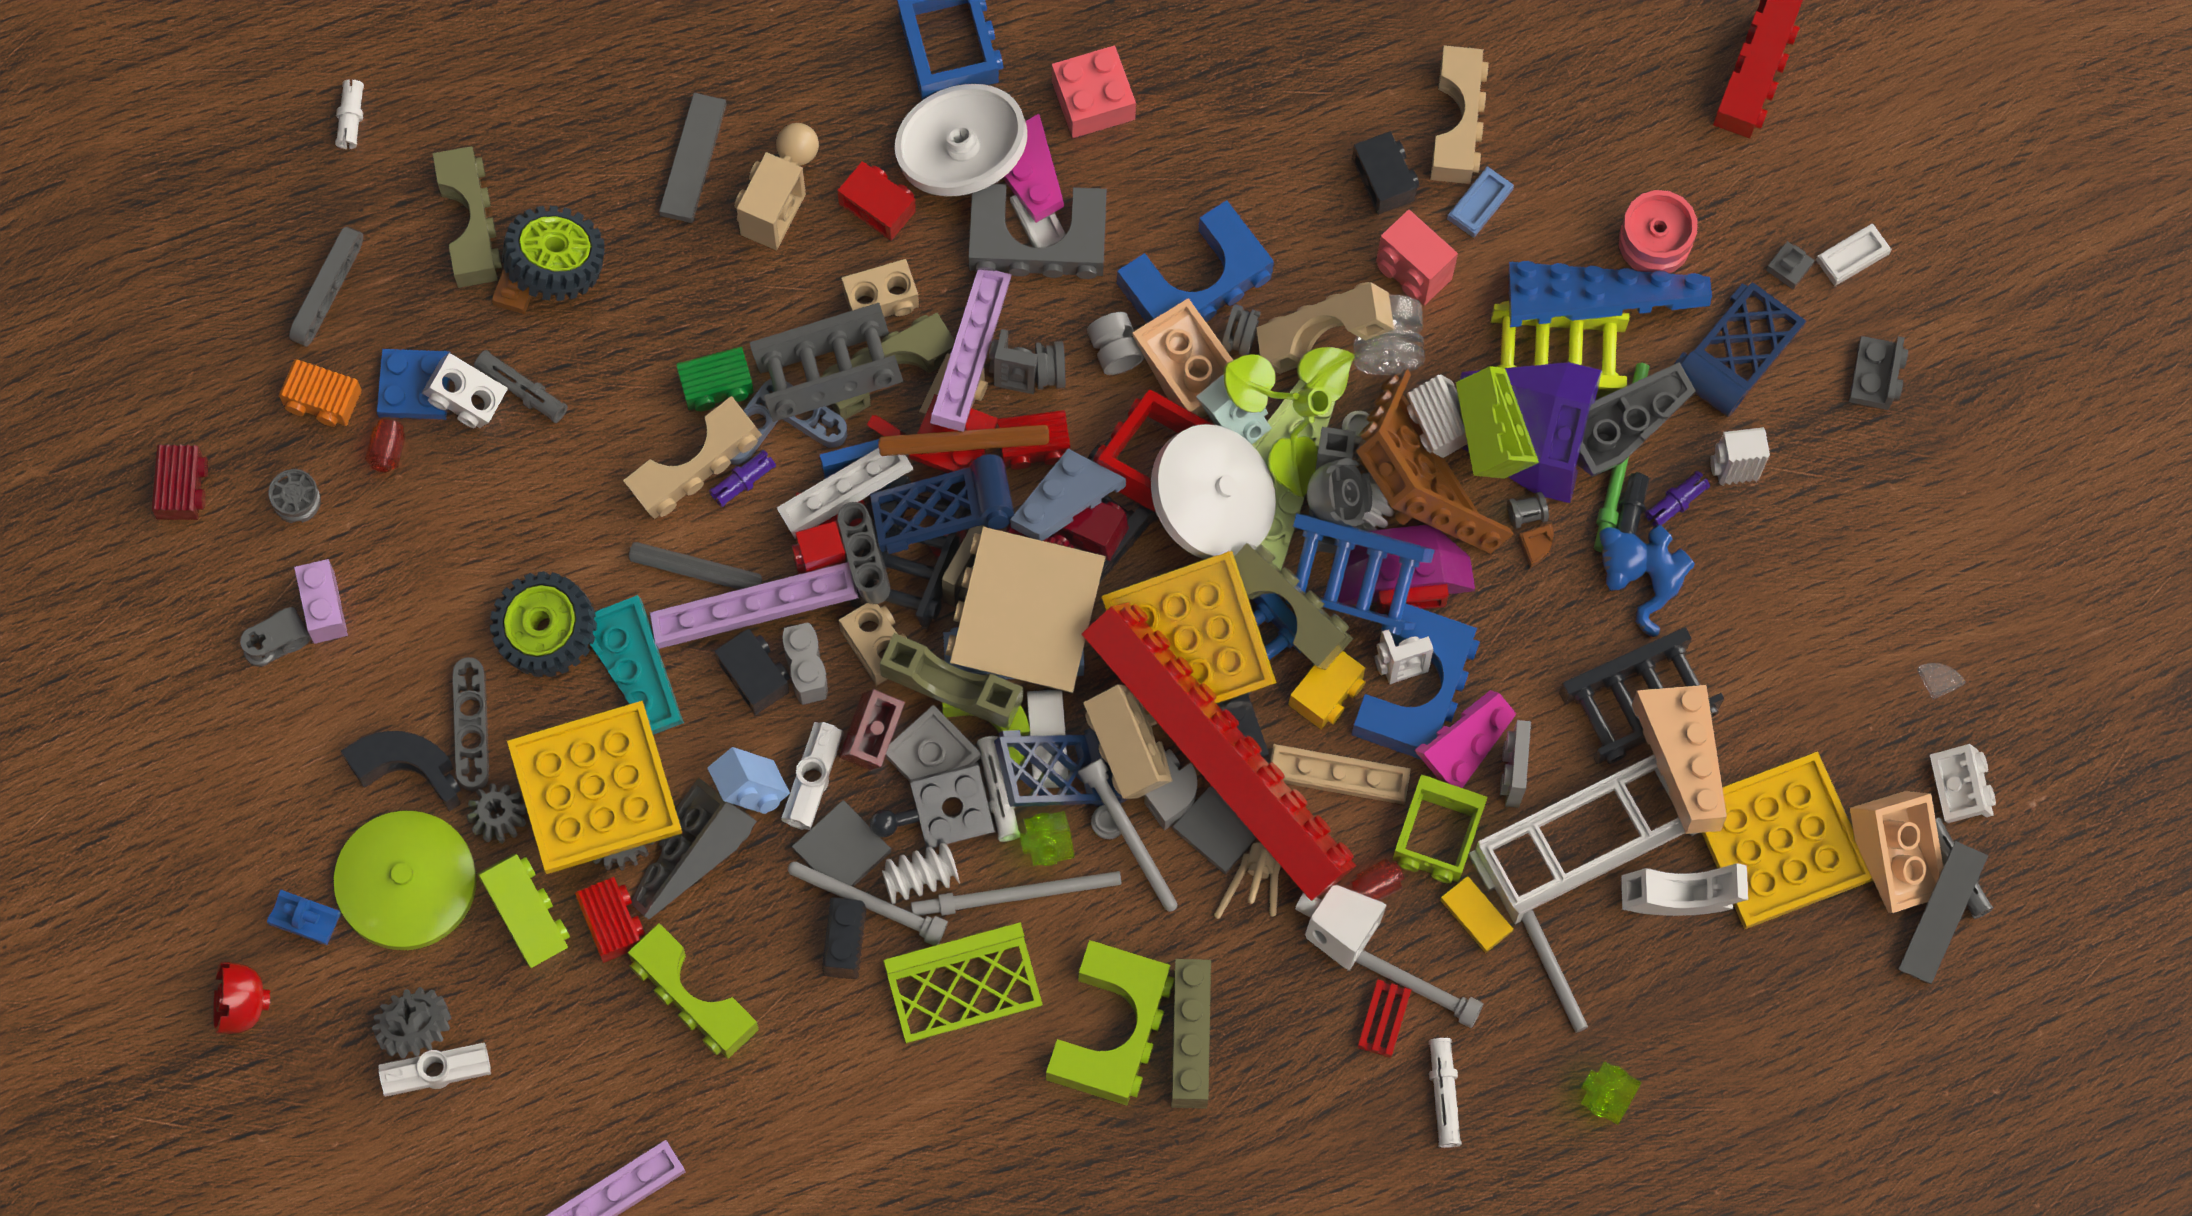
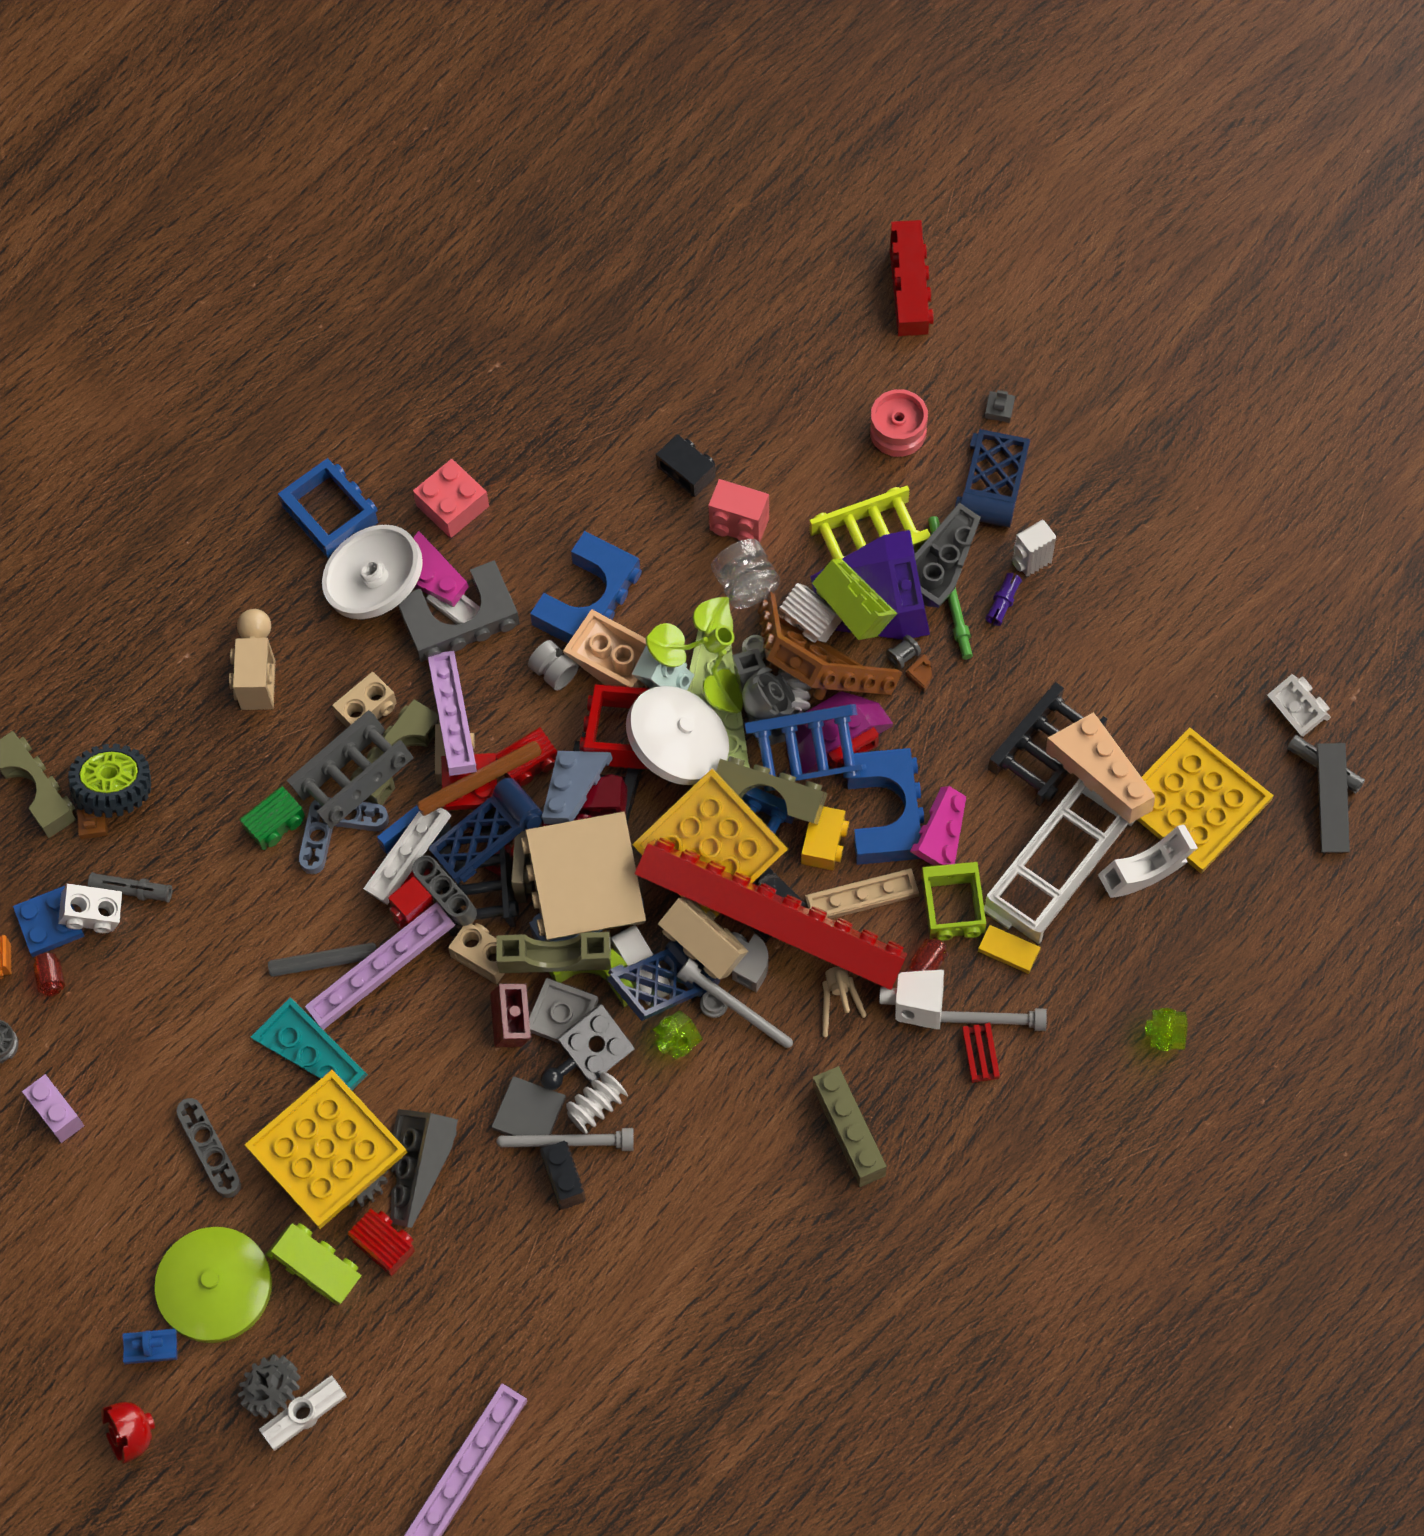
camera: 20 degrees left, 5 degrees down
(278, 636) = (32, 1149): dark grey piece -> none
(399, 750) = (169, 1189): black arch -> none
(488, 802) = (271, 1206): dark grey gear -> none
(528, 604) = (215, 1035): wheel -> none
(661, 486) = (269, 911): tan arch -> none
(693, 158) = (180, 670): dark grey tile -> none
(722, 1022) = (503, 1278): lime arch -> none
(742, 478) = (326, 880): dark purple pin -> none
(748, 780) = (438, 1092): light blue brick -> none
(752, 670) = (401, 1013): black brick -> none
(805, 663) = (437, 990): light grey brick -> none
(817, 756) = (481, 1053): white piece -> none
(877, 200) = (330, 641): red brick -> none
(883, 427) = (410, 797): red tile -> none
(948, 903) = (626, 1115): light grey bar -> none
(952, 953) = (647, 1149): lime fence -> none
(1007, 823) = (642, 1040): white pin -> none
(1013, 367) = (487, 713): dark grey bracket -> none
(1050, 365) = (514, 700): dark grey wheel -> none
(1115, 1072) = (795, 1108): lime arch -> none
(1215, 831) = (794, 973): dark grey tile -> none
(1245, 330) = (642, 616): dark grey wheel -> none
(1362, 311) = (720, 561): tan arch -> none
(1404, 661) = (870, 793): white bracket -> none
(1444, 1078) = (1050, 1084): white pin -> none
(1461, 78) = (708, 379): tan arch -> none
(1480, 202) = (763, 457): medium blue tile -> none
(1515, 772) = (985, 826): light grey plate -> none
(1554, 971) = (1084, 964): light grey bar -> none
(1595, 292) = (876, 481): blue wing -> none
(1629, 558) = (991, 654): blue animal -> none
(1633, 503) = (974, 617): black axle -> none
(1853, 254) = (1039, 381): white tile -> none
(1877, 371) = (1097, 452): dark grey bracket -> none
(1899, 847) = (1280, 766): light nougat slope -> none
(1940, 678) = (1246, 640): clear tile -> none

